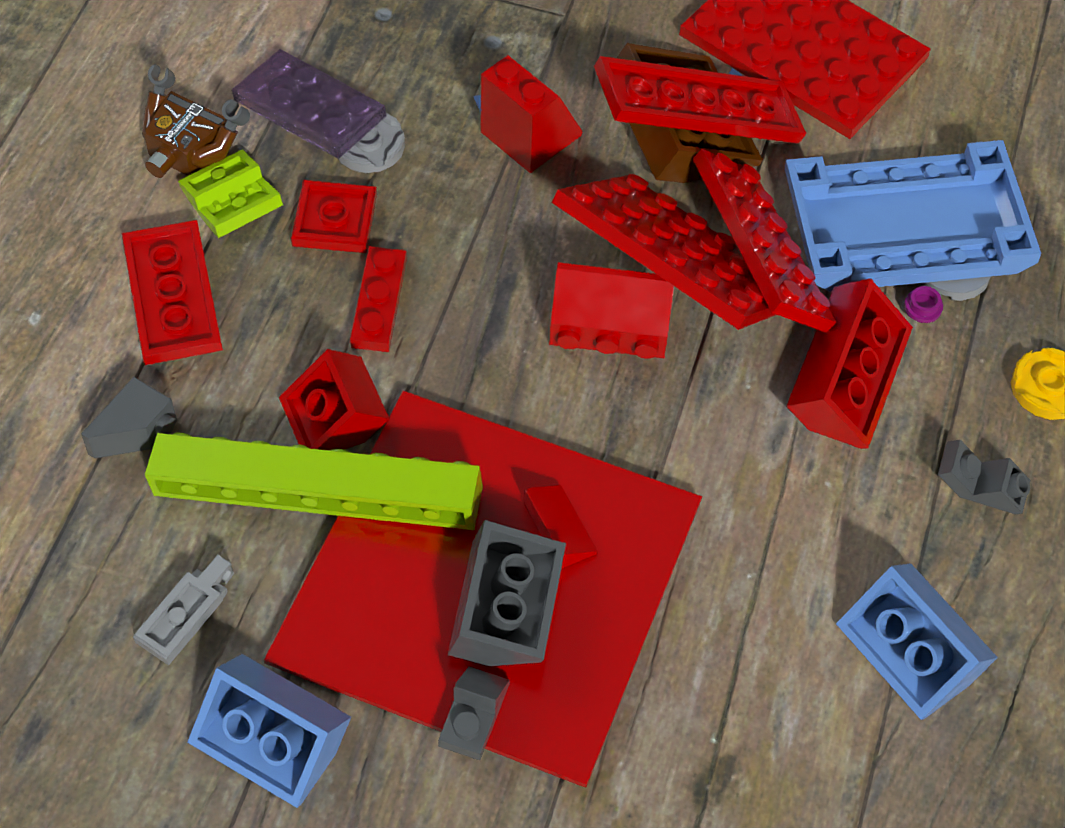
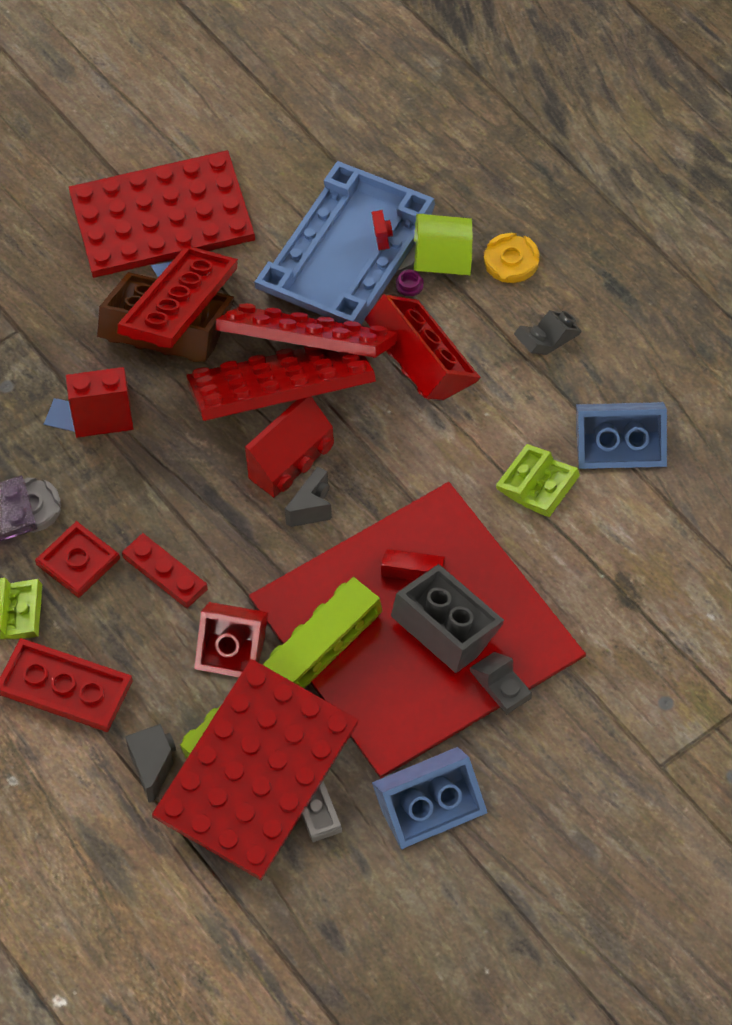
camera: 50 degrees left, 0 degrees up
(173, 524) = (255, 769): none -> red plate
(558, 372) = (309, 503): none -> dark grey slope
(782, 589) = (537, 480): none -> lime slope
(952, 228) = (382, 229): none -> red plate
(996, 301) = (443, 244): none -> lime slope

